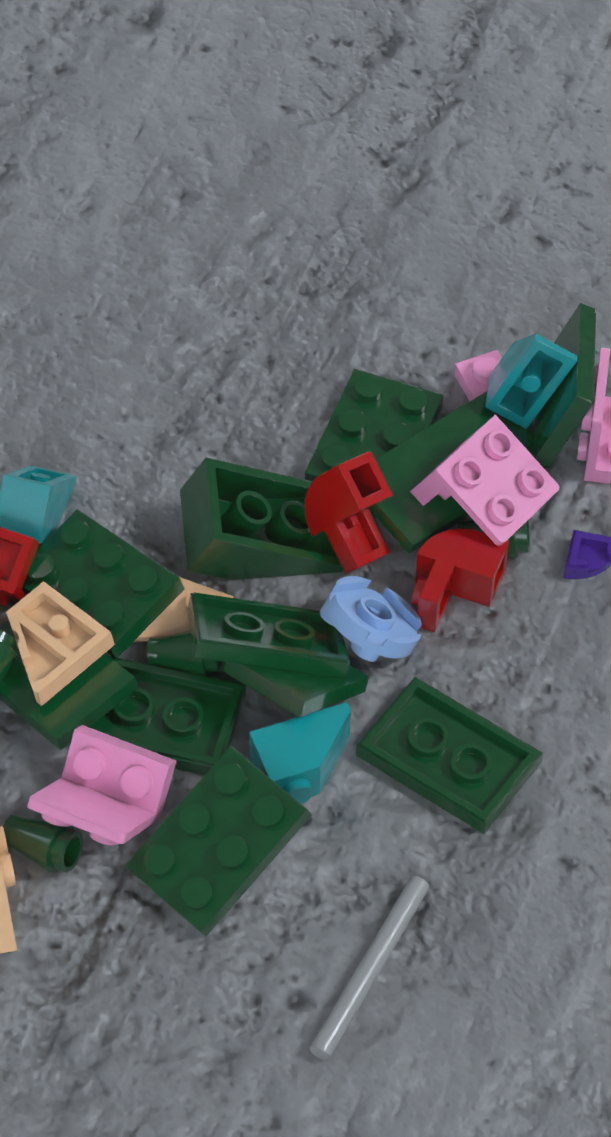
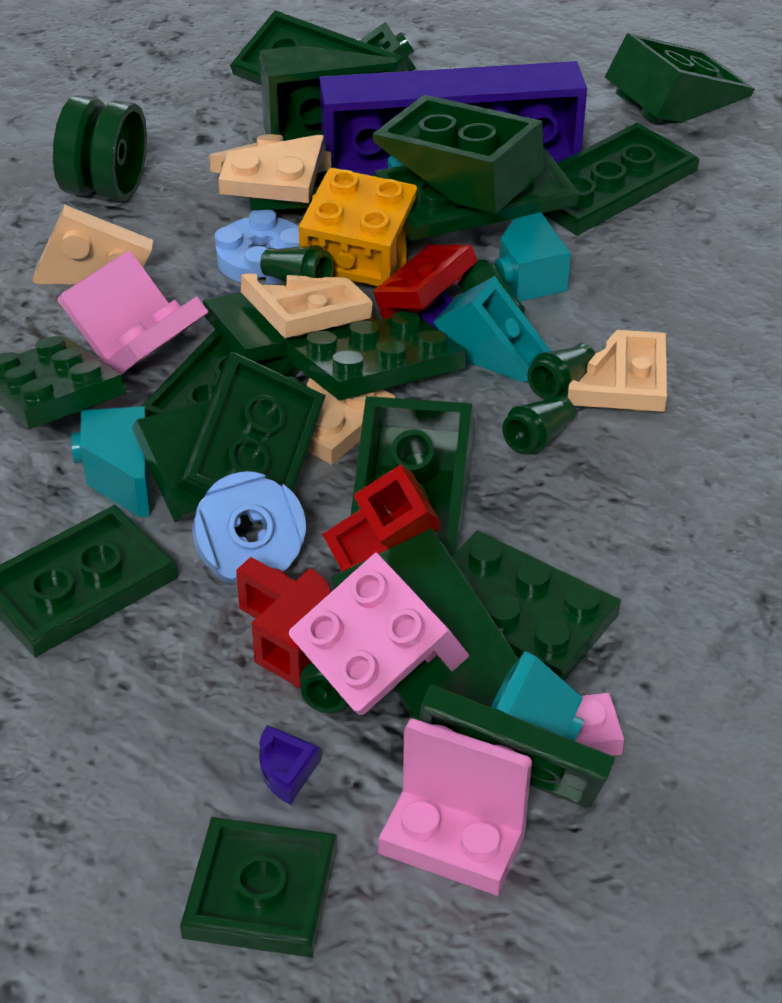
camera: 105 degrees right, 10 degrees down
(60, 398) = (625, 374): none -> light nougat wing
(72, 445) = (556, 369): none -> dark green cone
(154, 451) = (535, 424): none -> dark green cone

